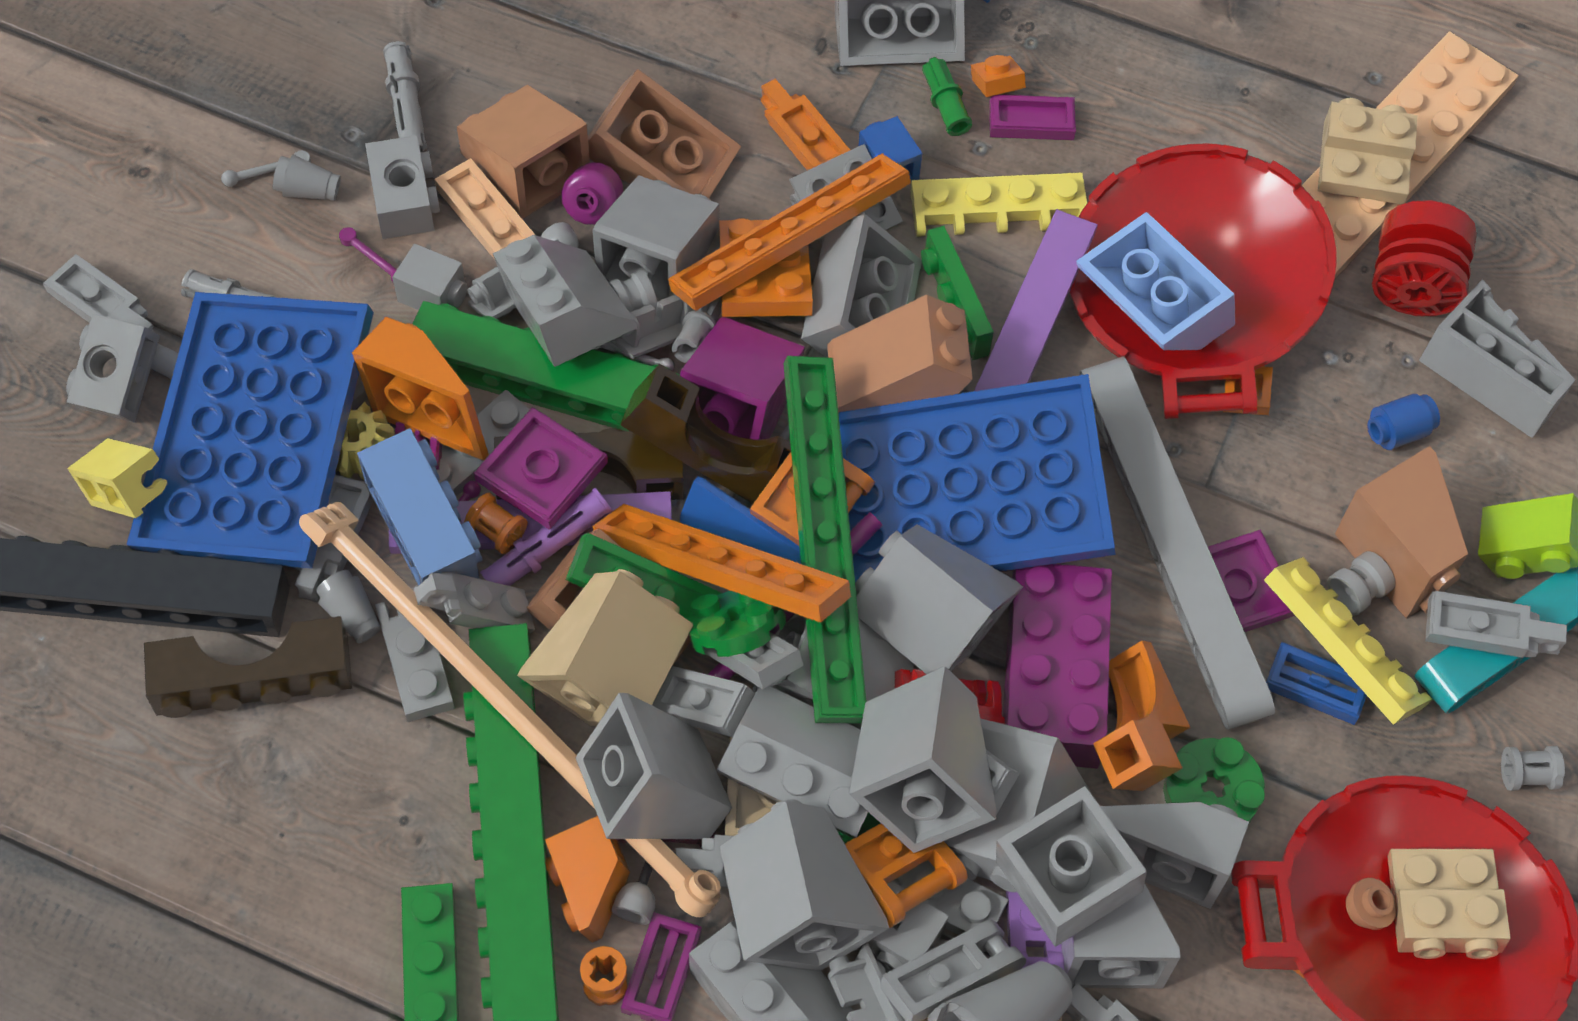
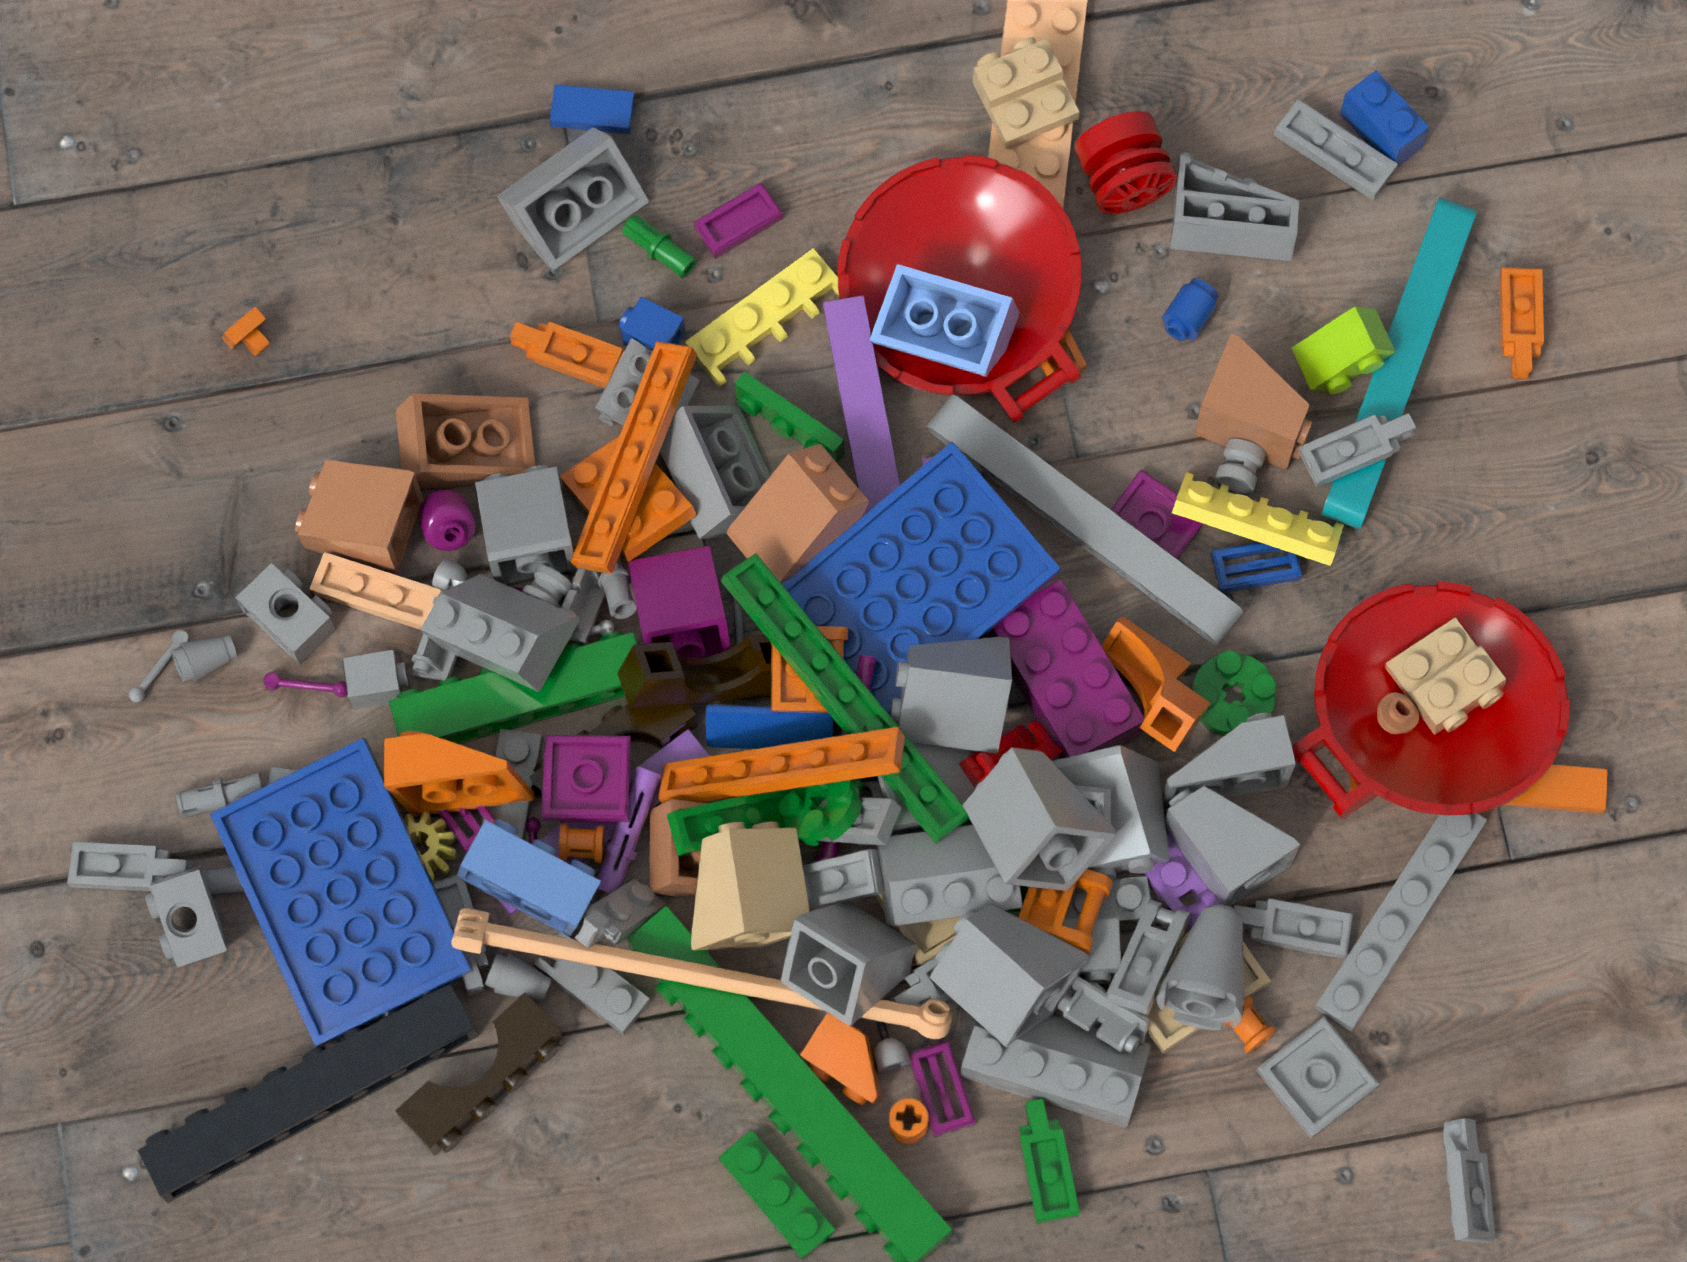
camera: 30 degrees left, 10 degrees up
(113, 475) = (268, 998): light yellow hinge -> none
(403, 85) = (214, 521): light grey pin -> none
(998, 75) = (688, 201): orange plate -> none
(1070, 866) = (1189, 833): light grey brick -> none
(1532, 768) = (1430, 536): light grey bush -> none

